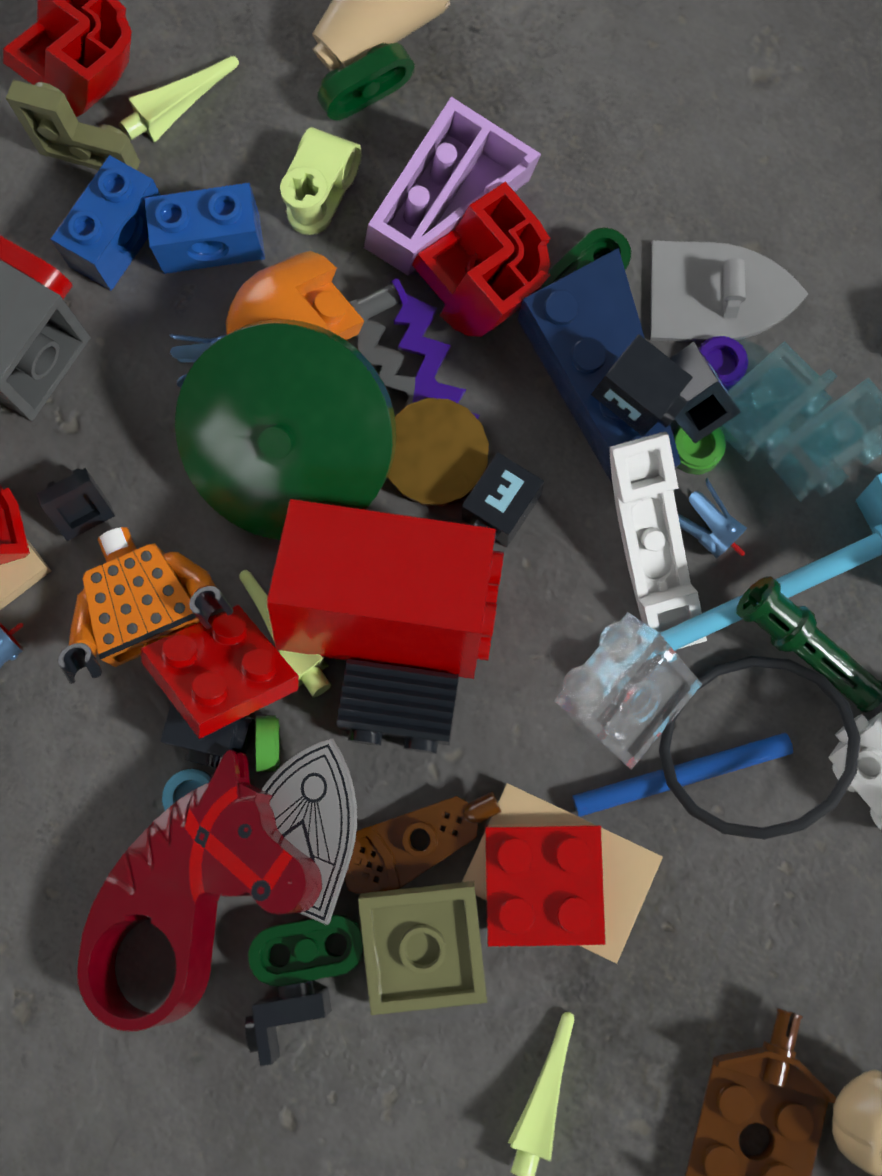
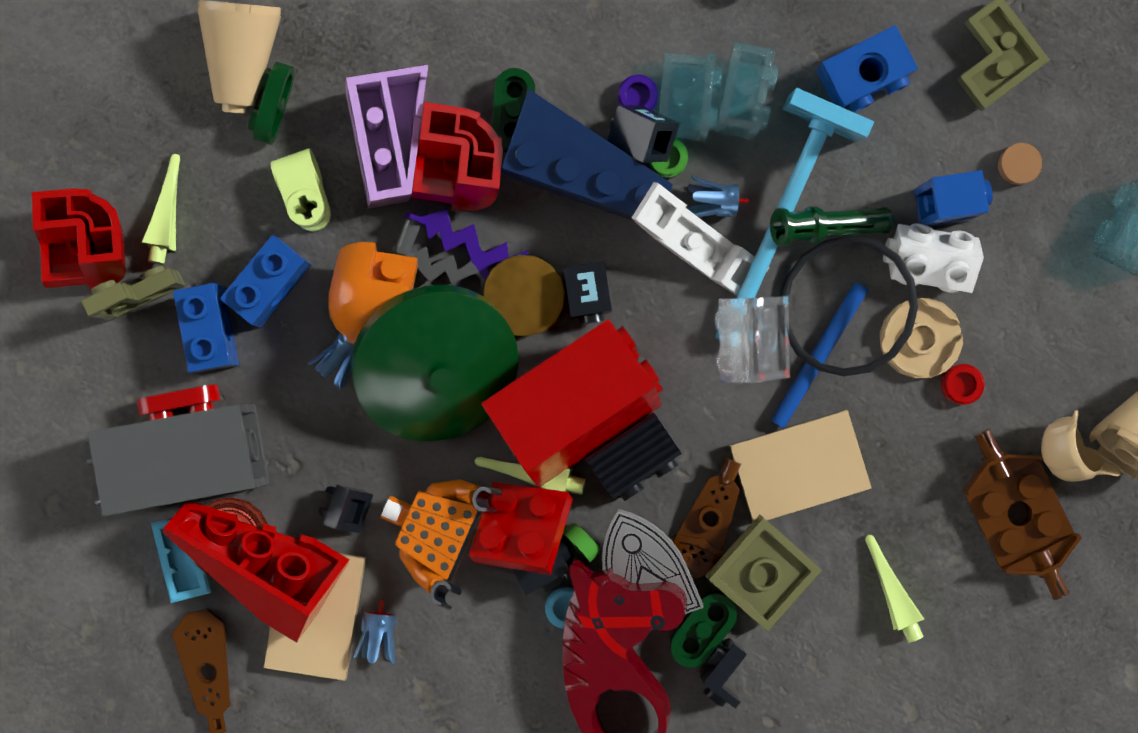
camera: 50 degrees left, 10 degrees up
(544, 886) = (799, 482): red plate -> none
(643, 387) = (618, 165): black brick -> none
(716, 291) = (597, 51): light grey shield -> none
(810, 866) = (933, 342): none -> tan tile
(810, 942) = (962, 384): none -> red tile

